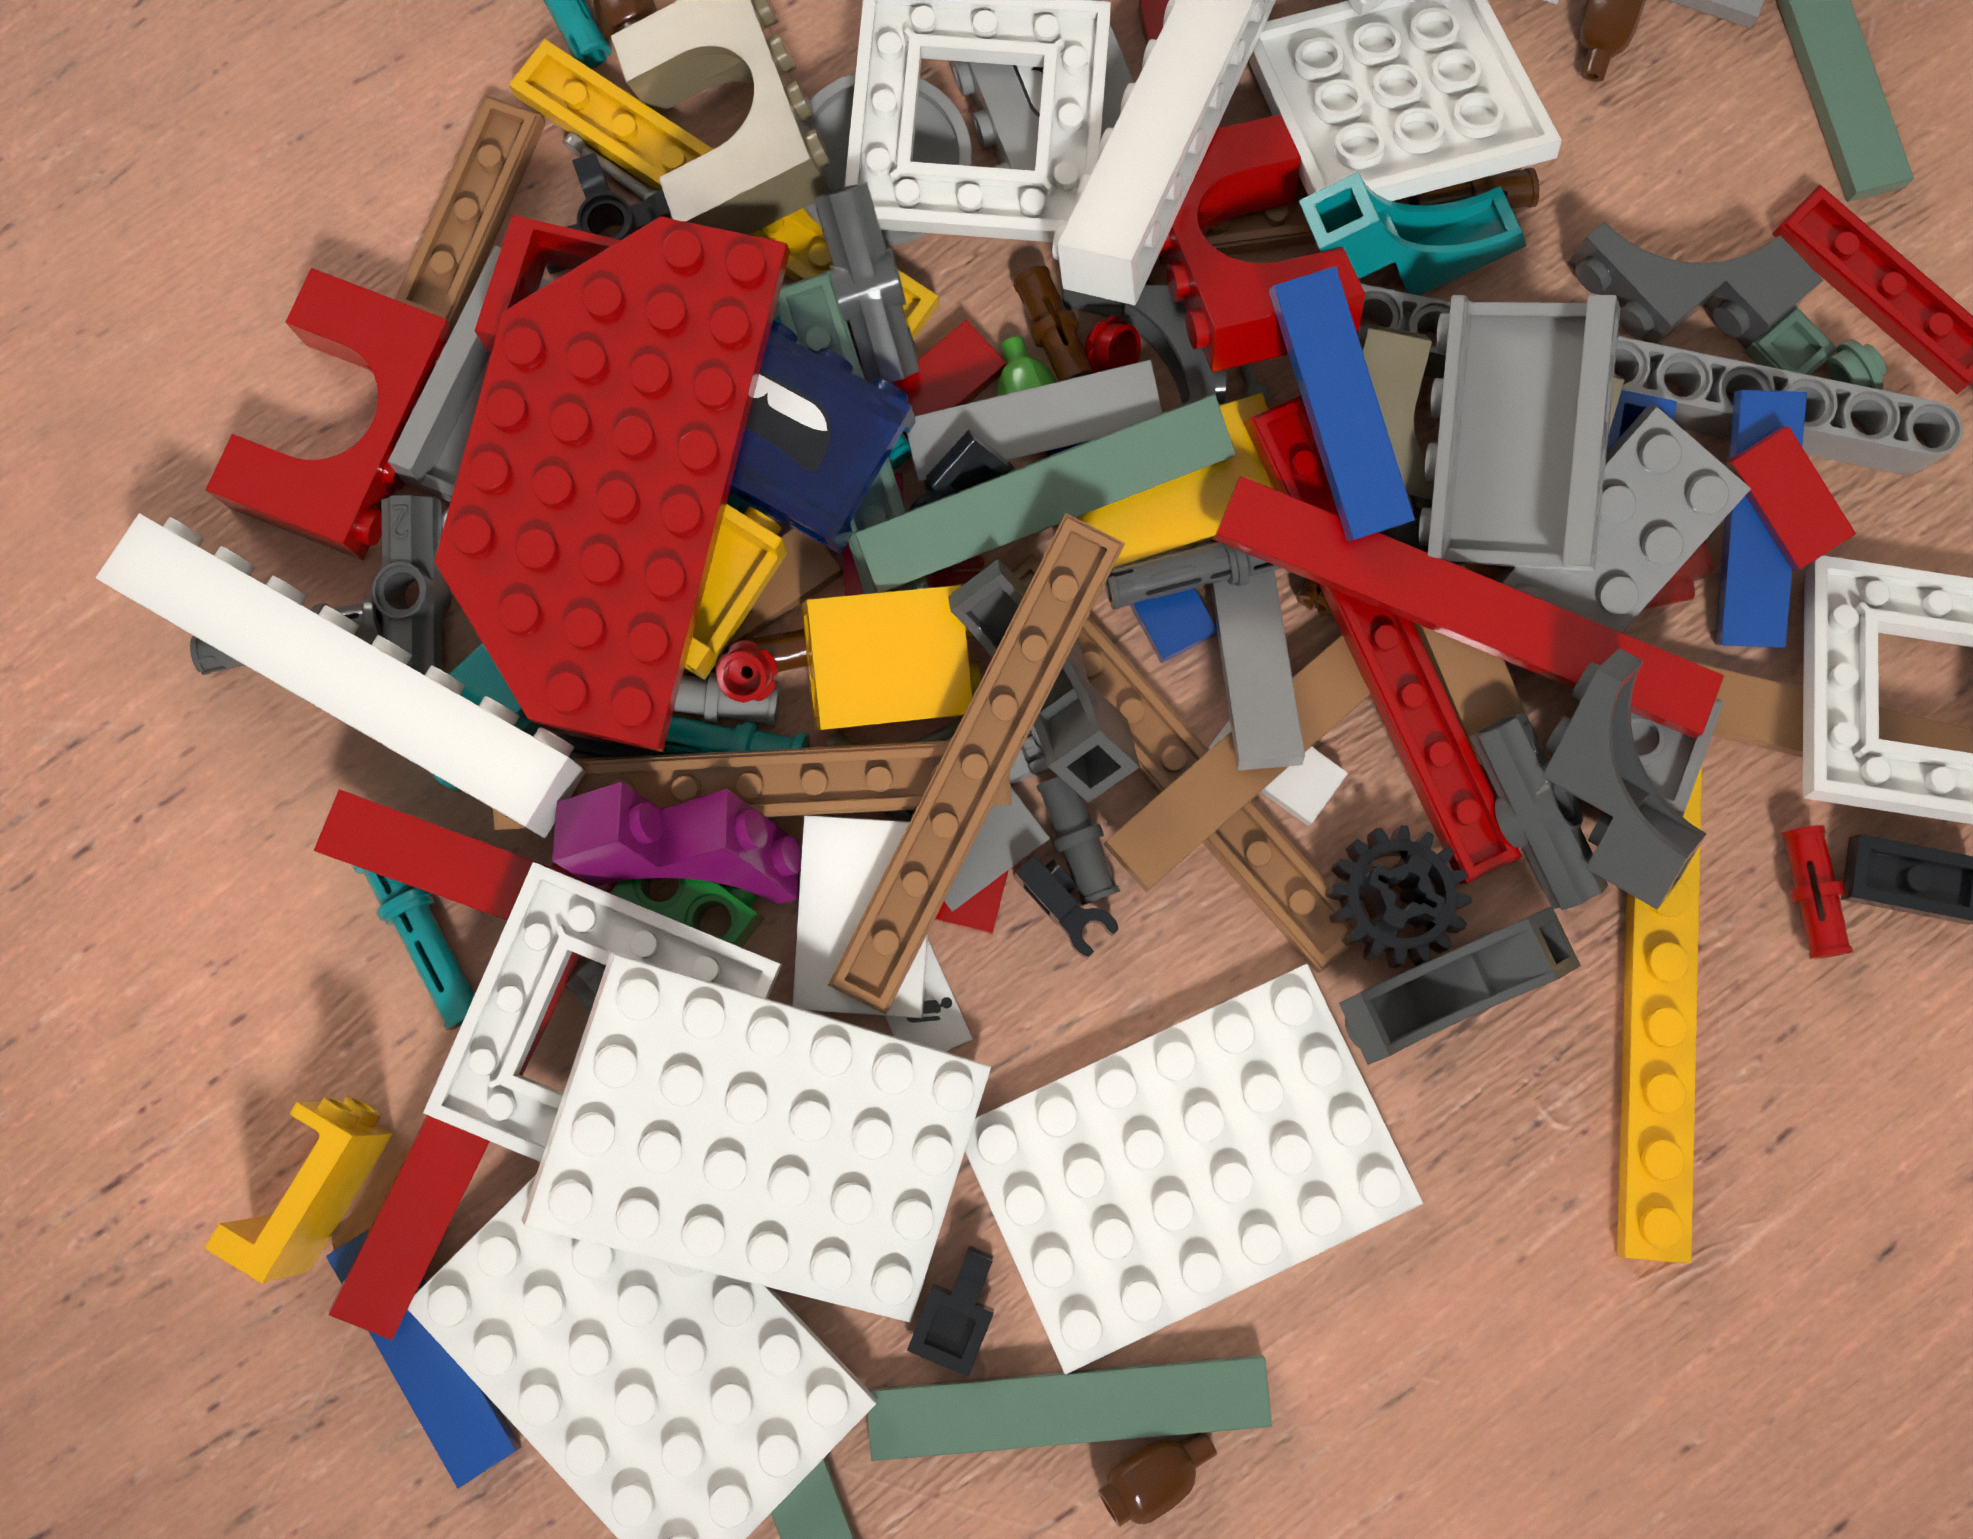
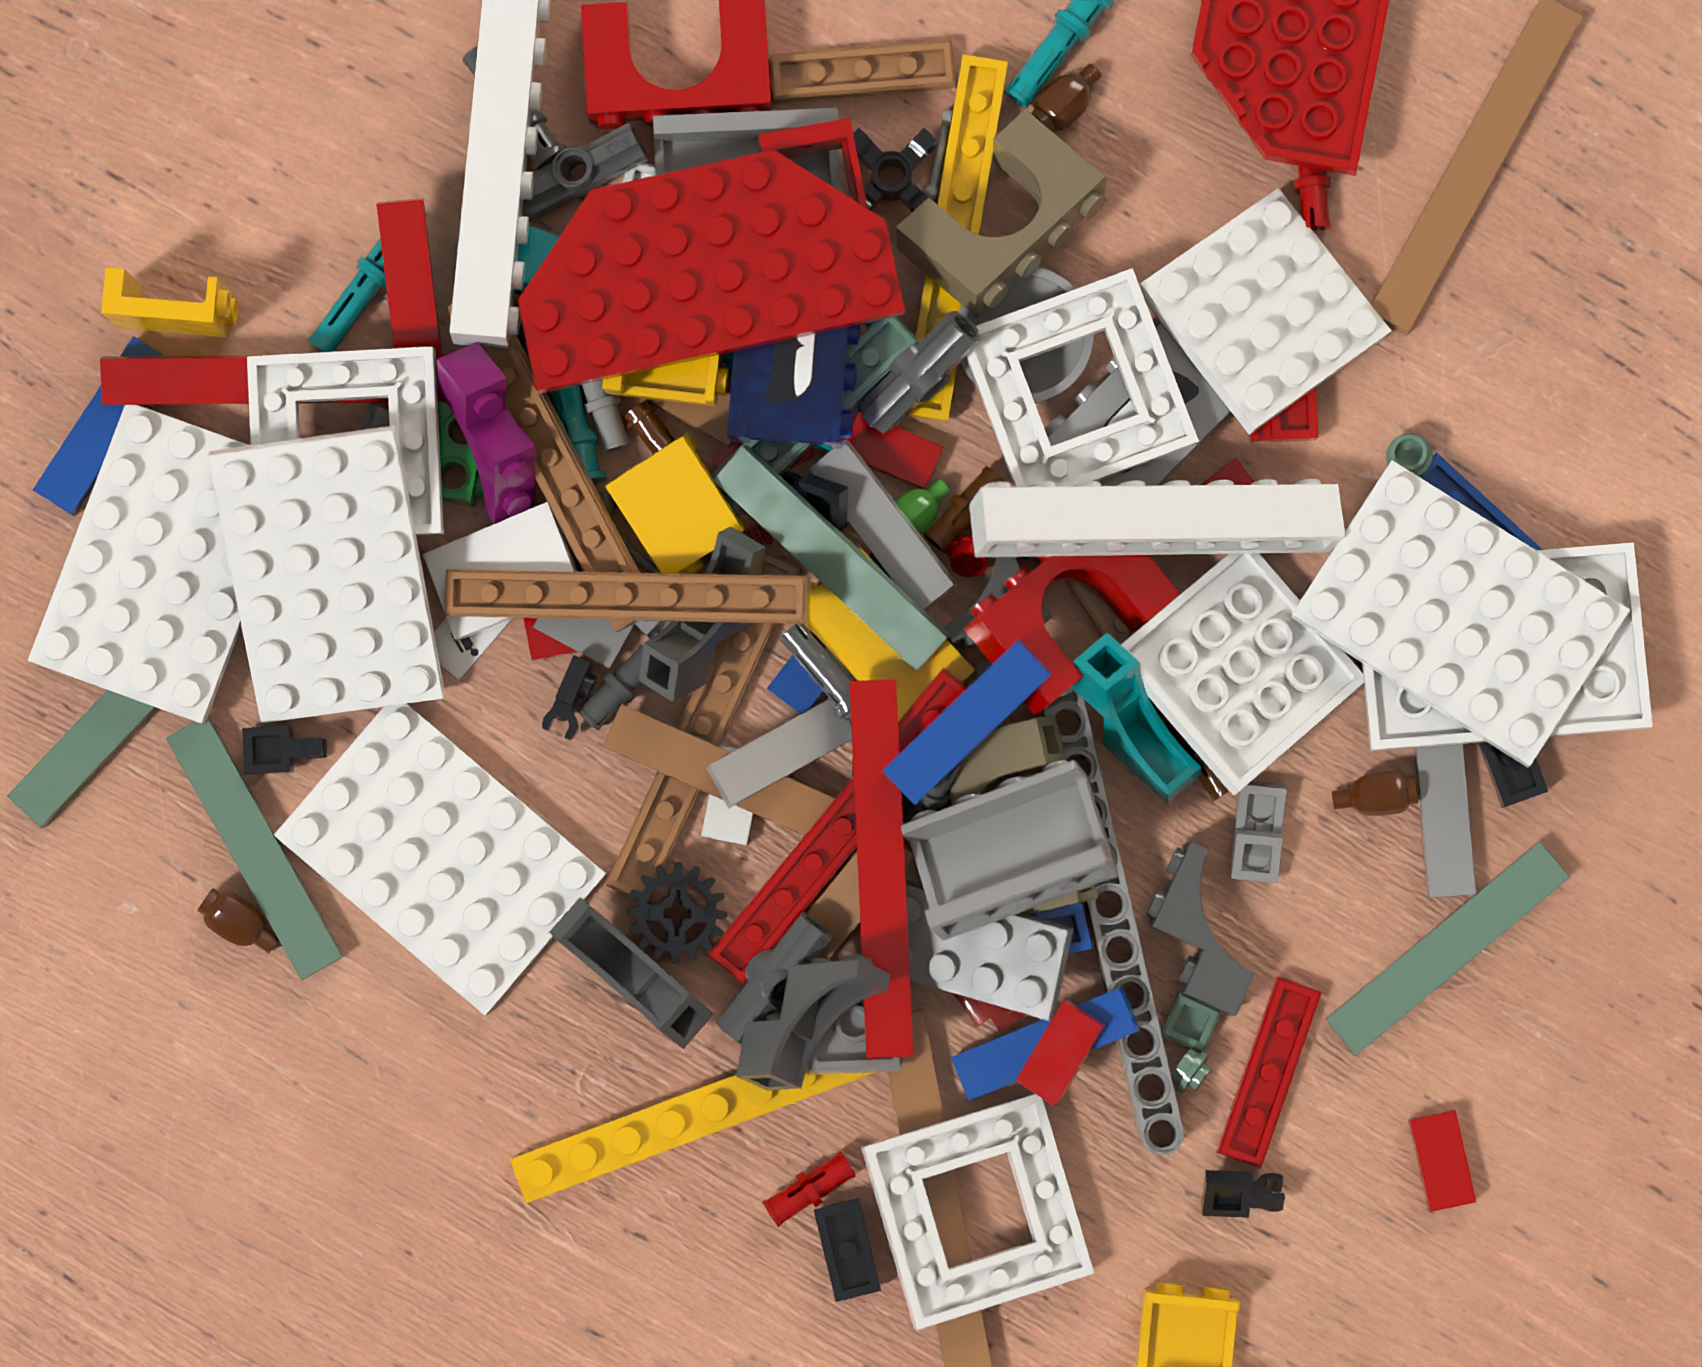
camera: 65 degrees right, 5 degrees up
(735, 683) = (613, 416): red plate -> none
(1600, 179) = (1258, 832): none -> light grey slope

